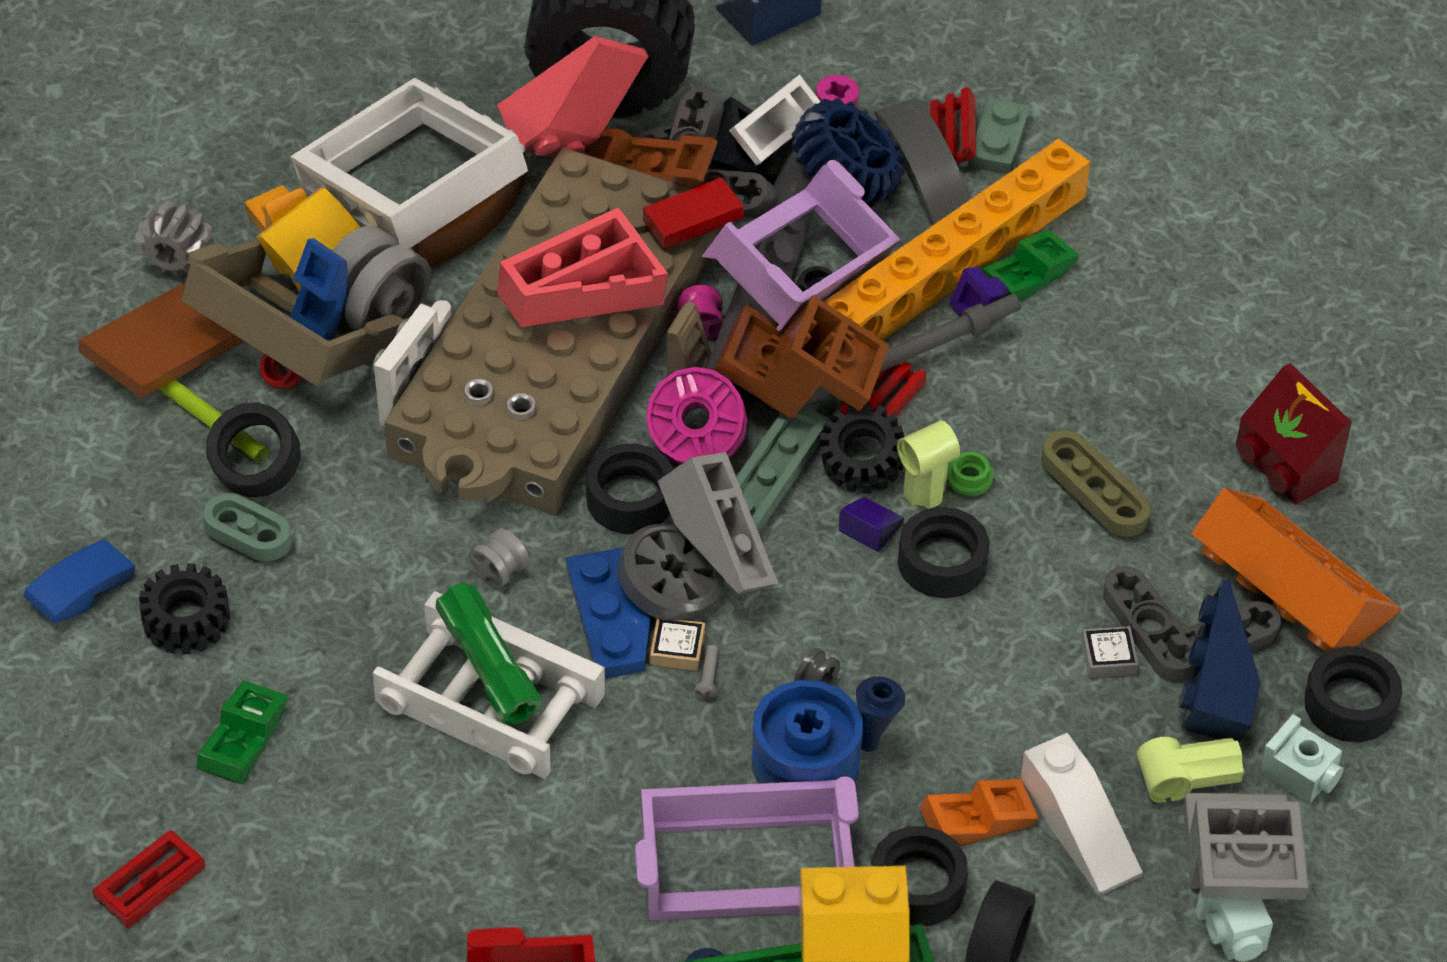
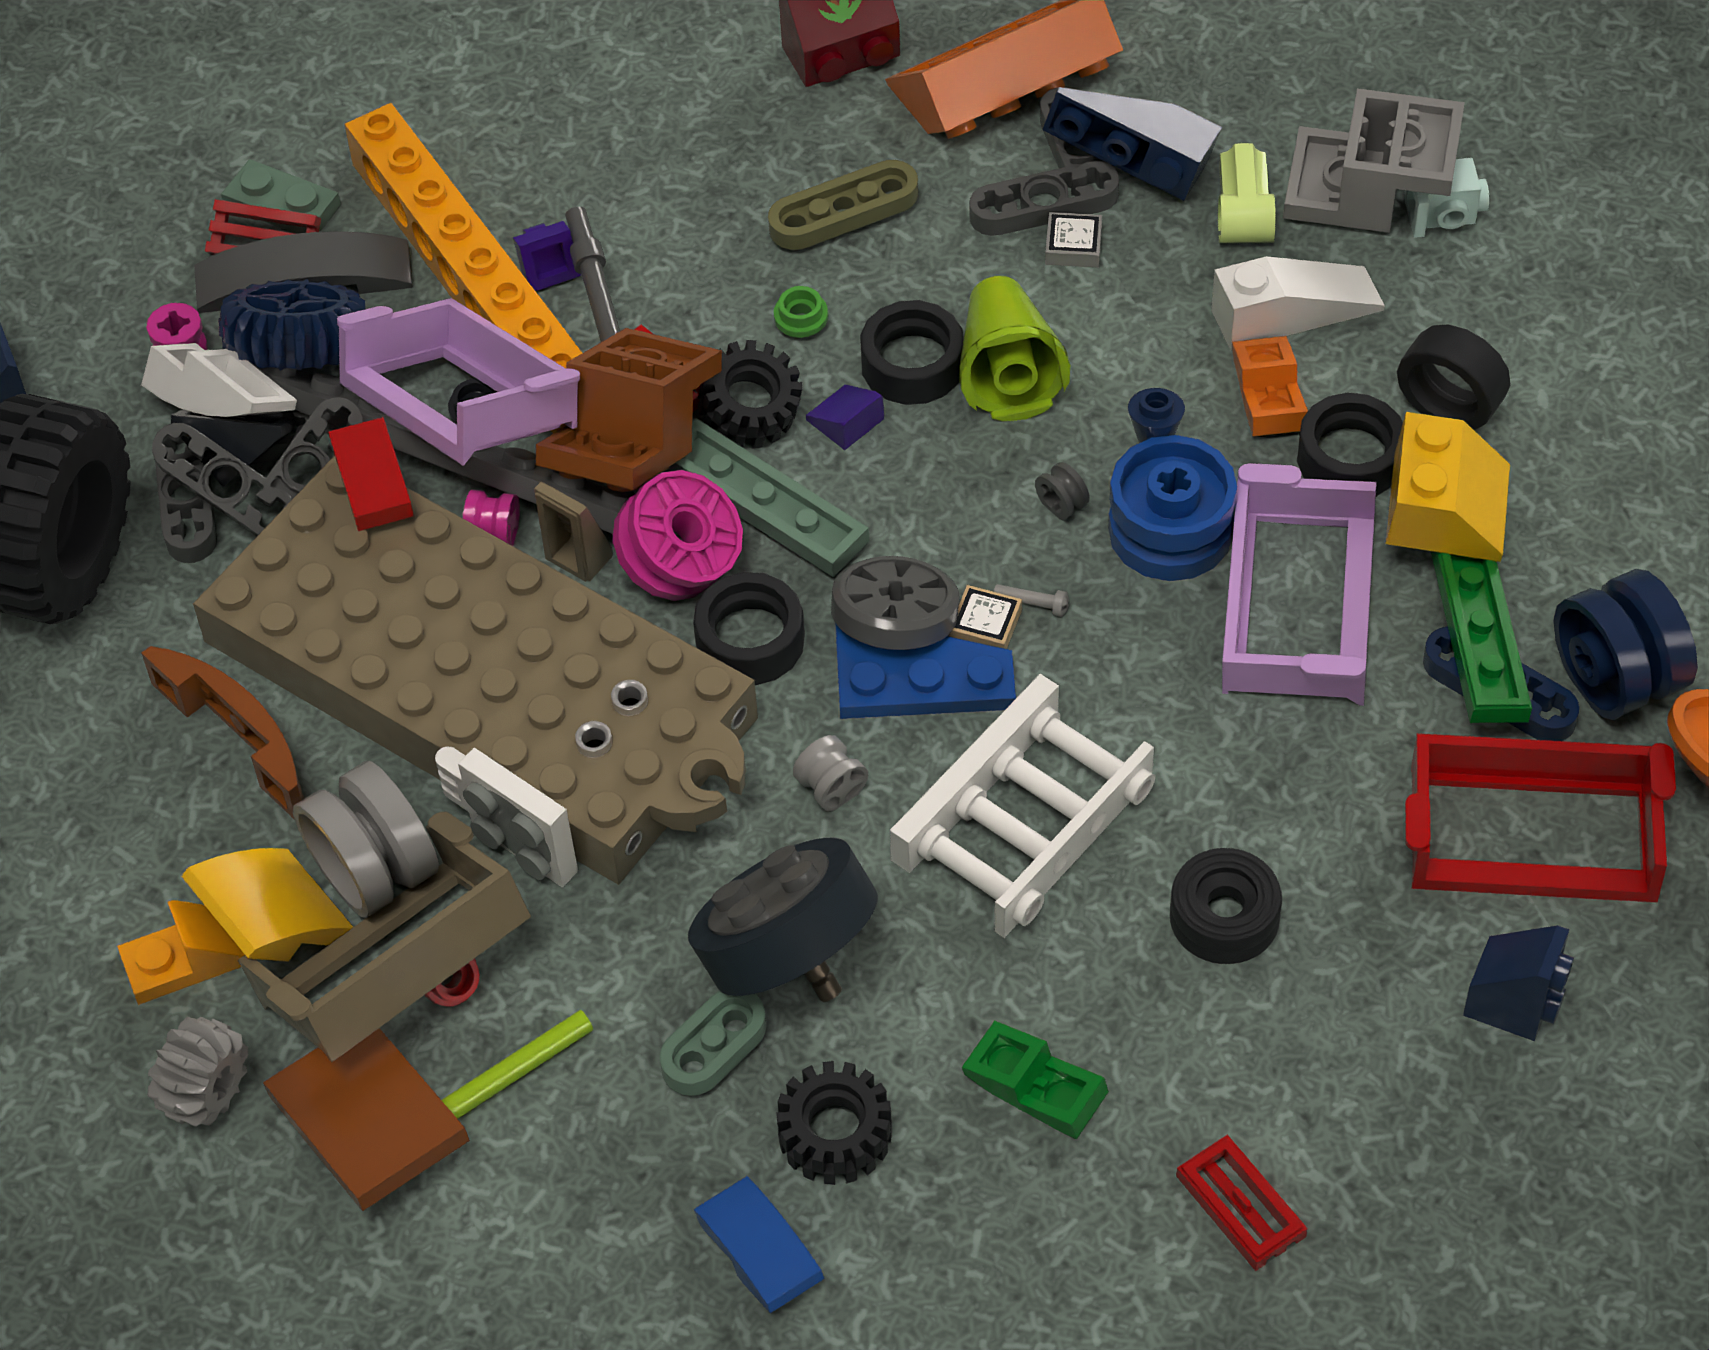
camera: 75 degrees left, 5 degrees up
(238, 419) = (628, 976): black tyre -> none
(322, 289) = (386, 882): blue slope -> none
(334, 532) = (784, 919): none -> black wheel
(384, 122) = (110, 709): white window -> none
(410, 808) = (1230, 874): none -> black tyre
(504, 681) = (971, 785): green axle -> none
(573, 97) = (139, 582): coral slope -> none
(583, 274) = (462, 580): coral wedge -> none
(671, 160) = (238, 514): dark orange slope -> none
(717, 520) = (850, 530): light grey slope -> none
(926, 461) = (804, 326): yellowish green piece -> none
(954, 606) = (1010, 353): none -> lime cone
(1034, 264) = (498, 201): green slope -> none
(1301, 761) = (1261, 104): light aqua brick -> none
(1347, 723) = (1169, 81): black tyre -> none

